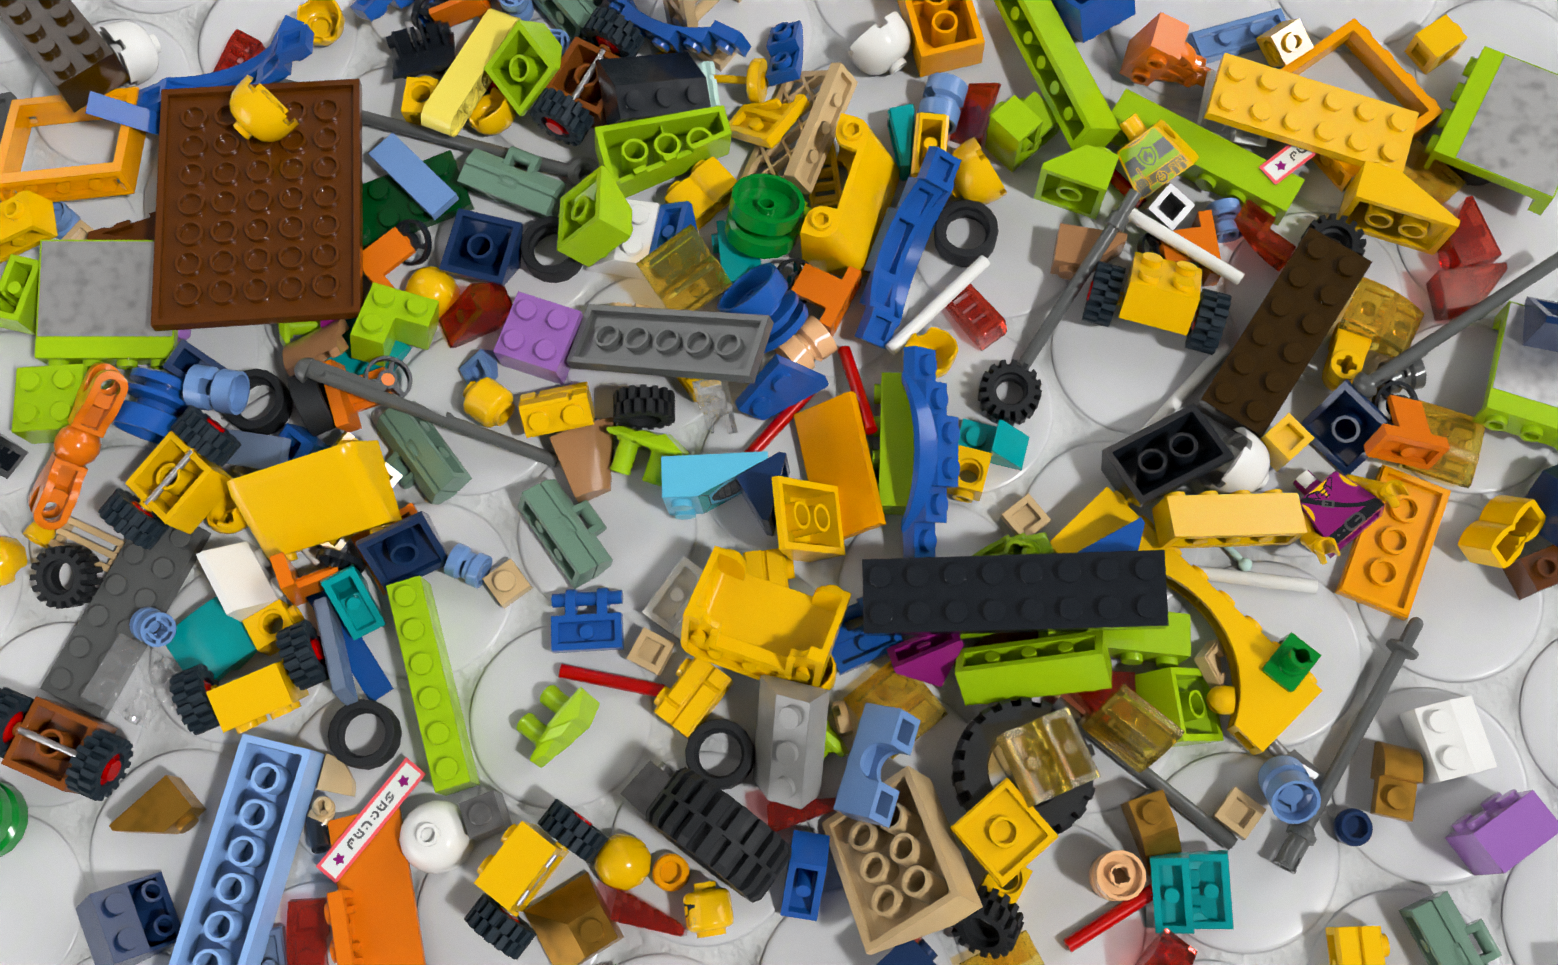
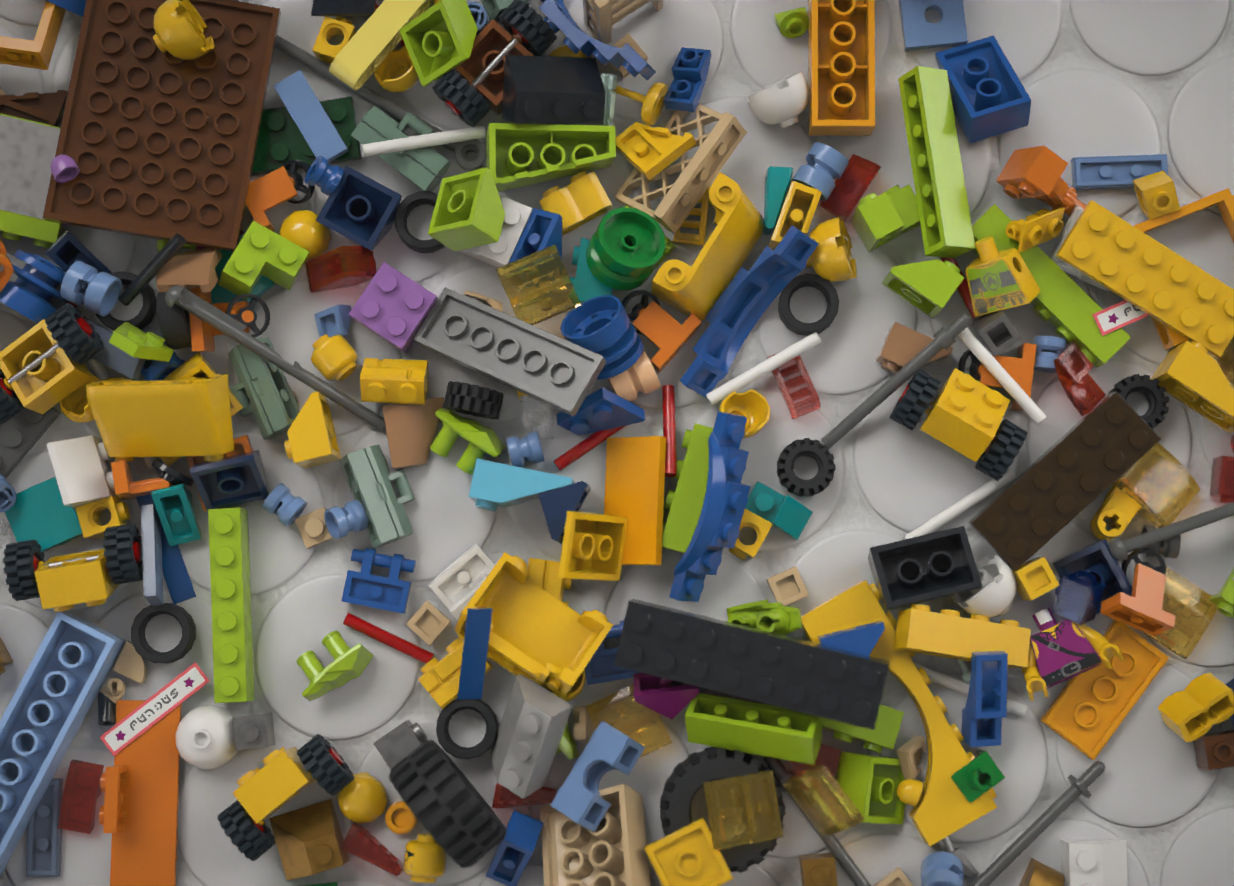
camera: 10 degrees right, 10 degrees up
(164, 271) = (64, 168): none -> medium lavender hinge
(271, 424) = (140, 344): none -> lime wing
(277, 355) = (152, 269): none -> black bar
(438, 223) = (324, 175): none -> blue wheel
(481, 483) = (313, 434): none -> yellow slope
(531, 167) = (422, 141): none -> white bar
(540, 561) = (346, 519): none -> medium blue wheel
(708, 660) = (474, 653): none -> blue sticker
(712, 442) = (525, 449): none -> medium blue wheel
(1177, 99) = (1036, 228): none -> yellow hinge
(1274, 577) = (986, 699): none -> blue slope
(1337, 447) = (1078, 597): none -> clear blue brick

